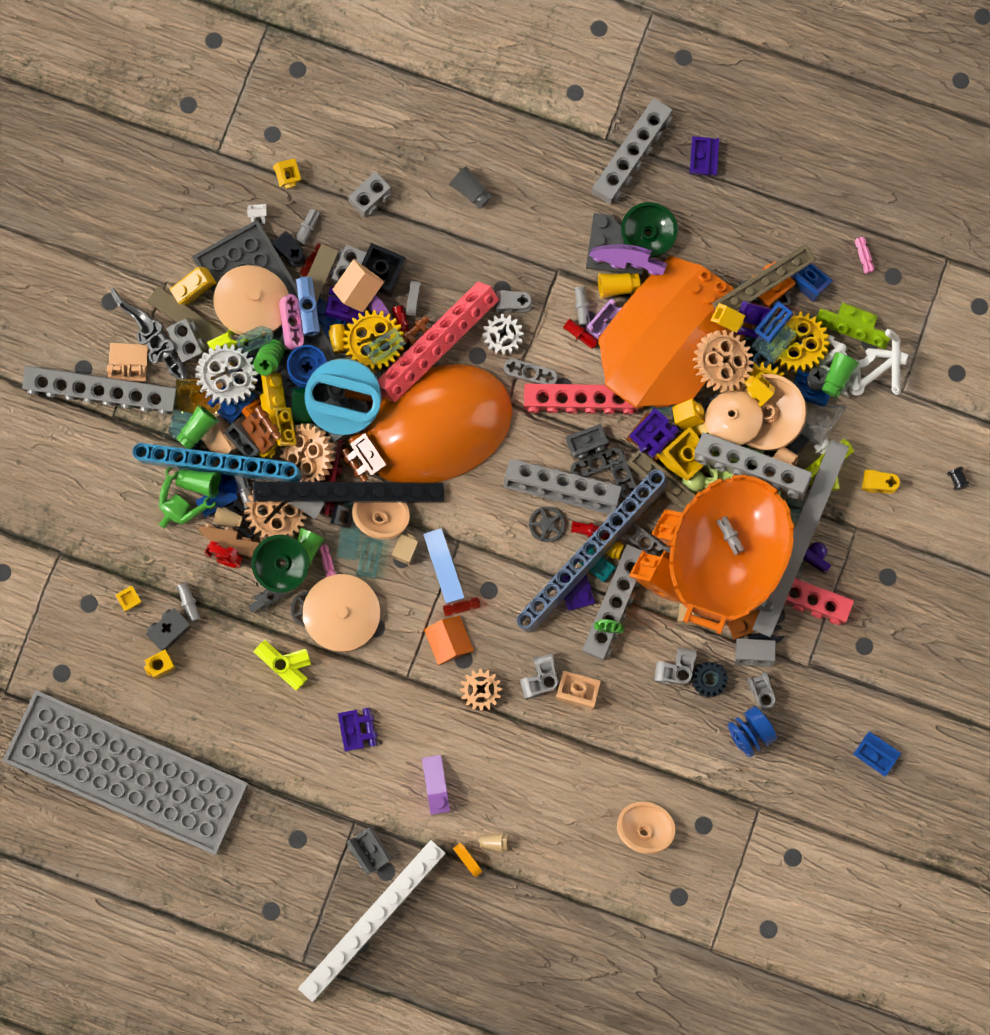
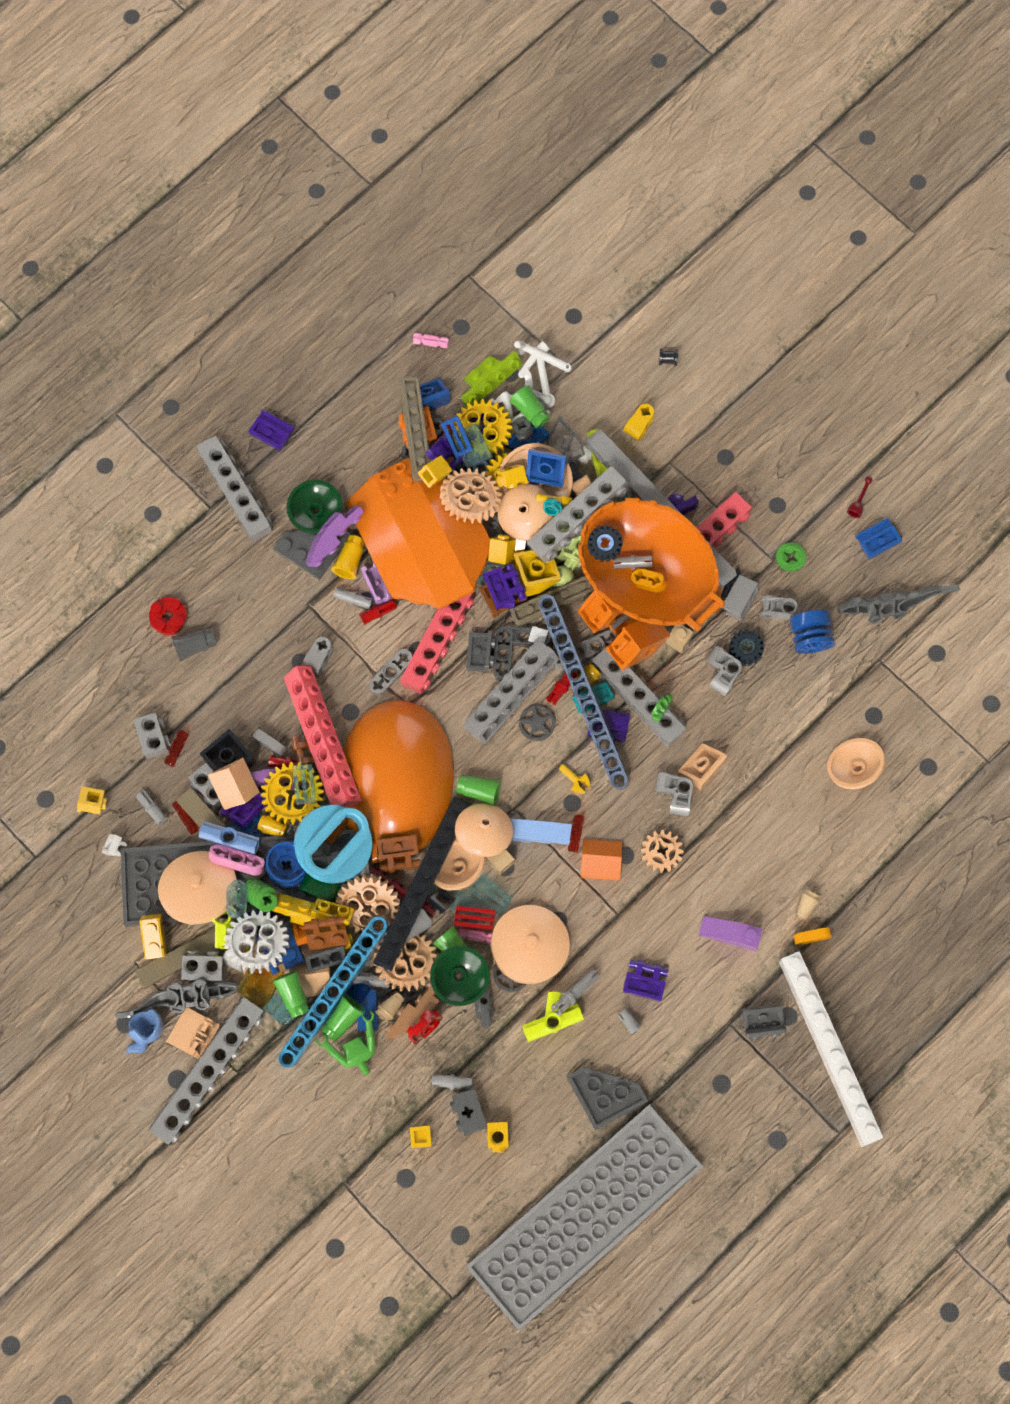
camera: 60 degrees left, 5 degrees down
(110, 319) = (144, 1029): none -> medium blue hair
(238, 741) = (605, 1095): none -> dark grey plate
(288, 248) = (161, 832): black piece -> none
(314, 732) = (629, 1021): none -> light grey pin
(315, 671) = (569, 997): none -> light grey pin
(336, 537) = (472, 917): none -> red tile
(370, 221) = (176, 748): none -> clear red axle
(412, 527) = (480, 838): none -> light nougat dish
(460, 502) = (479, 788): none -> bright green plant
(486, 143) = (176, 622): none -> red plate
(496, 331) = (345, 673): white gear -> none
(511, 582) = (575, 779): none -> yellow bar
(627, 485) = (537, 634): none -> white sticker
(715, 558) = (647, 583): none -> light orange beam
(730, 491) = (614, 545): none -> black bush
(746, 438) = (552, 507): none -> teal plate
(758, 443) = (562, 499): none -> yellow bar
(782, 415) = (546, 468): none -> blue slope
(818, 793) = (891, 603): none -> dark grey animal
(825, 676) = (788, 549): none -> bright green gear
(896, 719) = (856, 509): none -> dark red hinge

